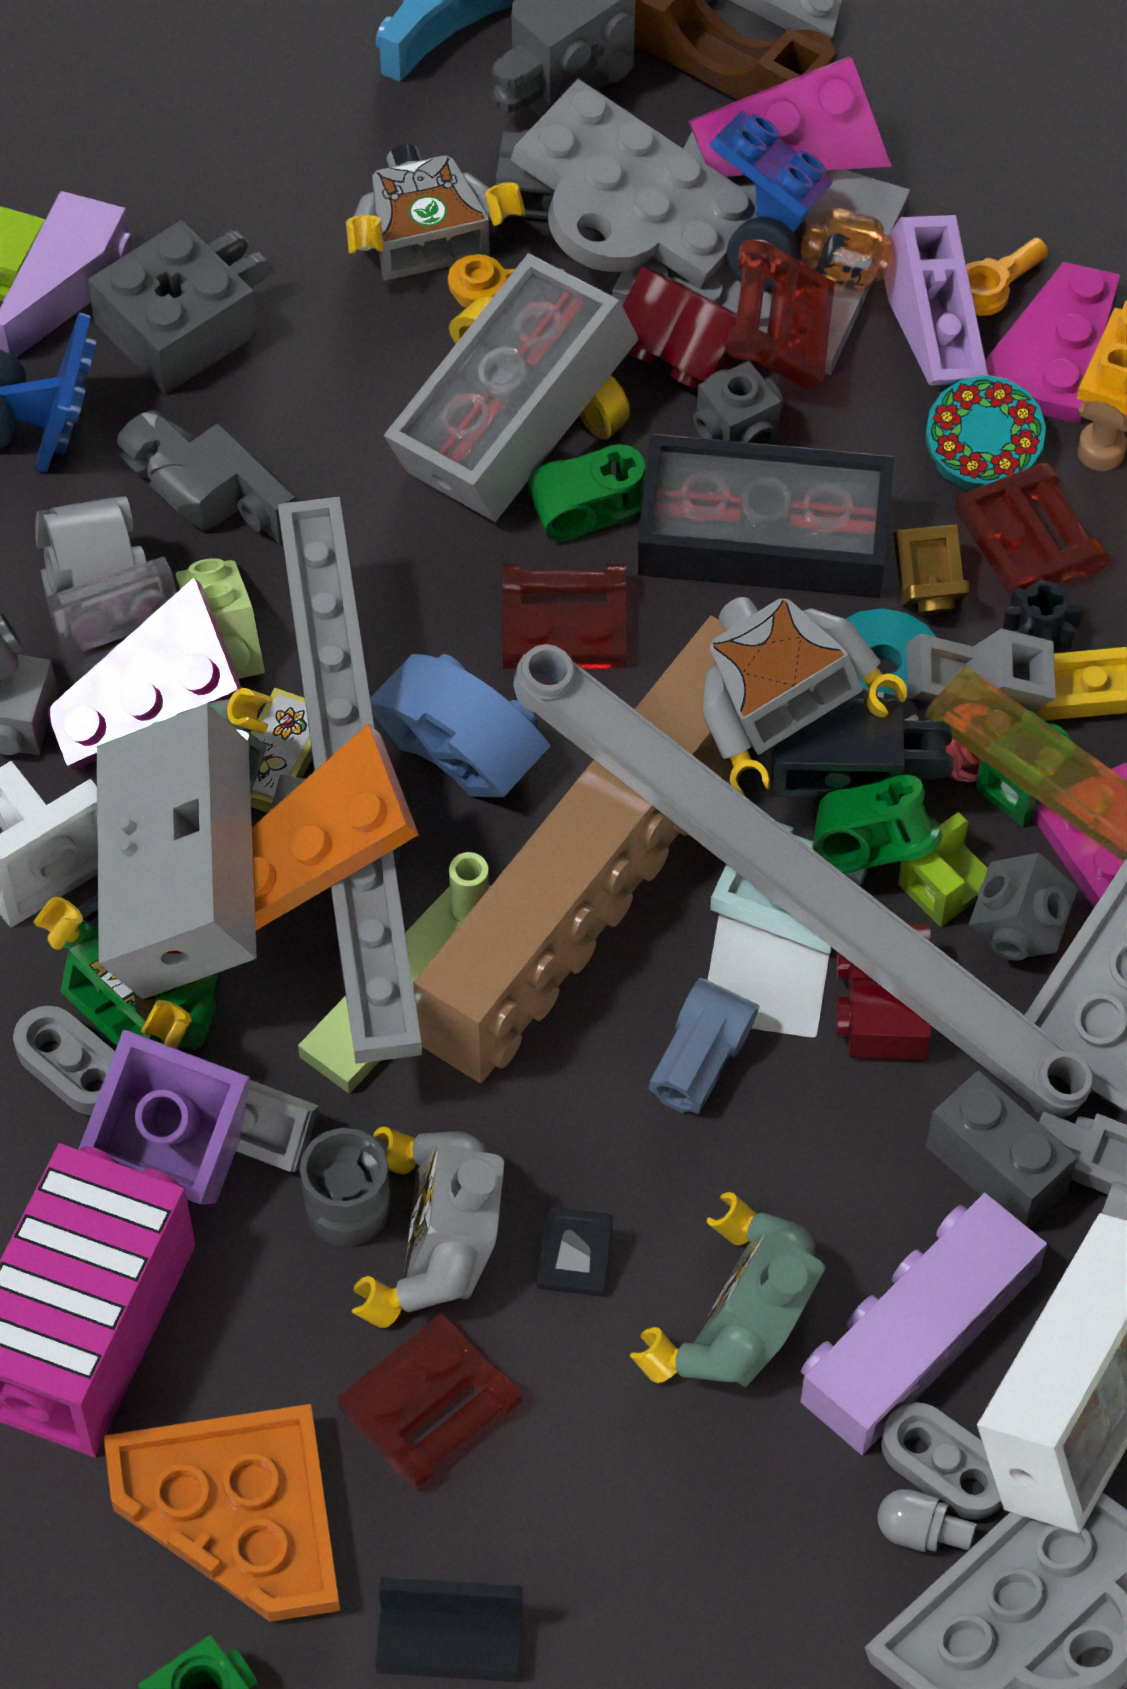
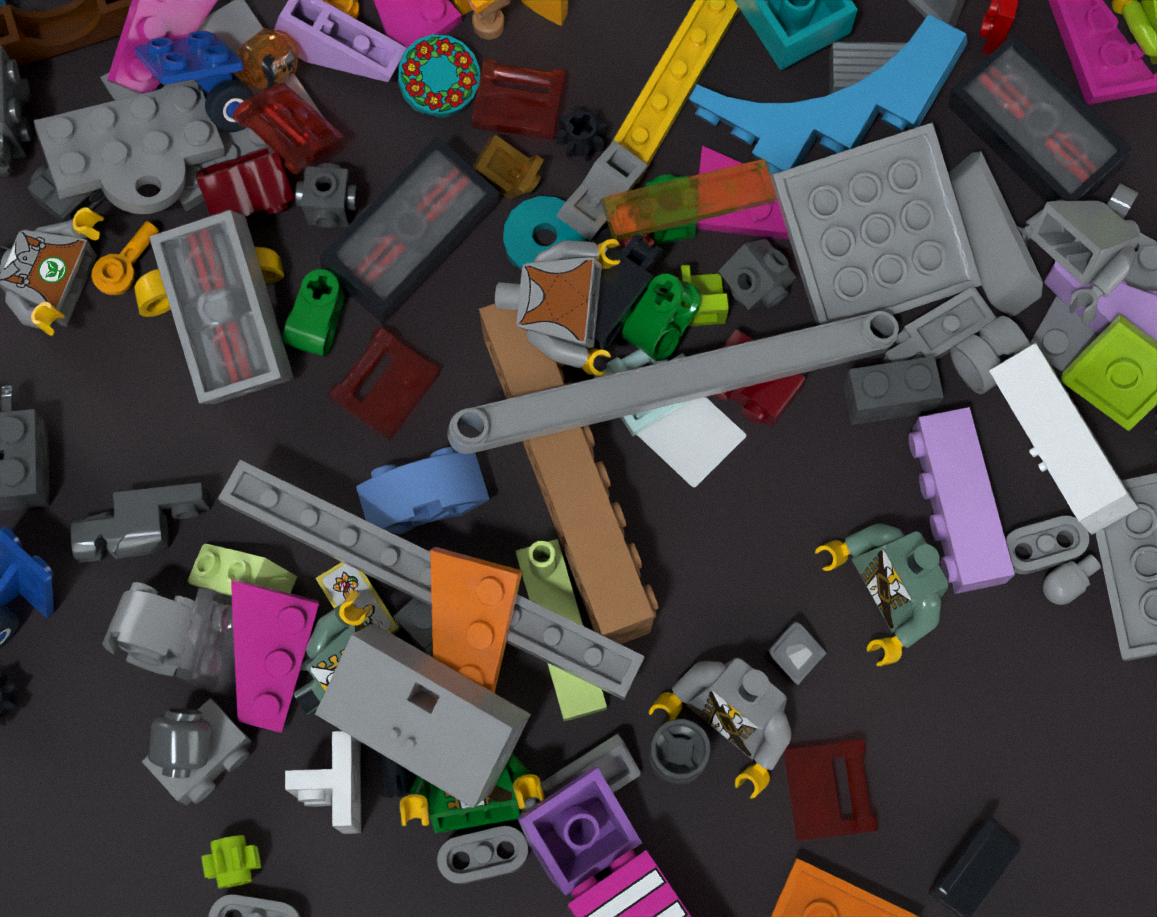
camera: 55 degrees left, 15 degrees up
(708, 1032) = (713, 488): sand blue piece -> none

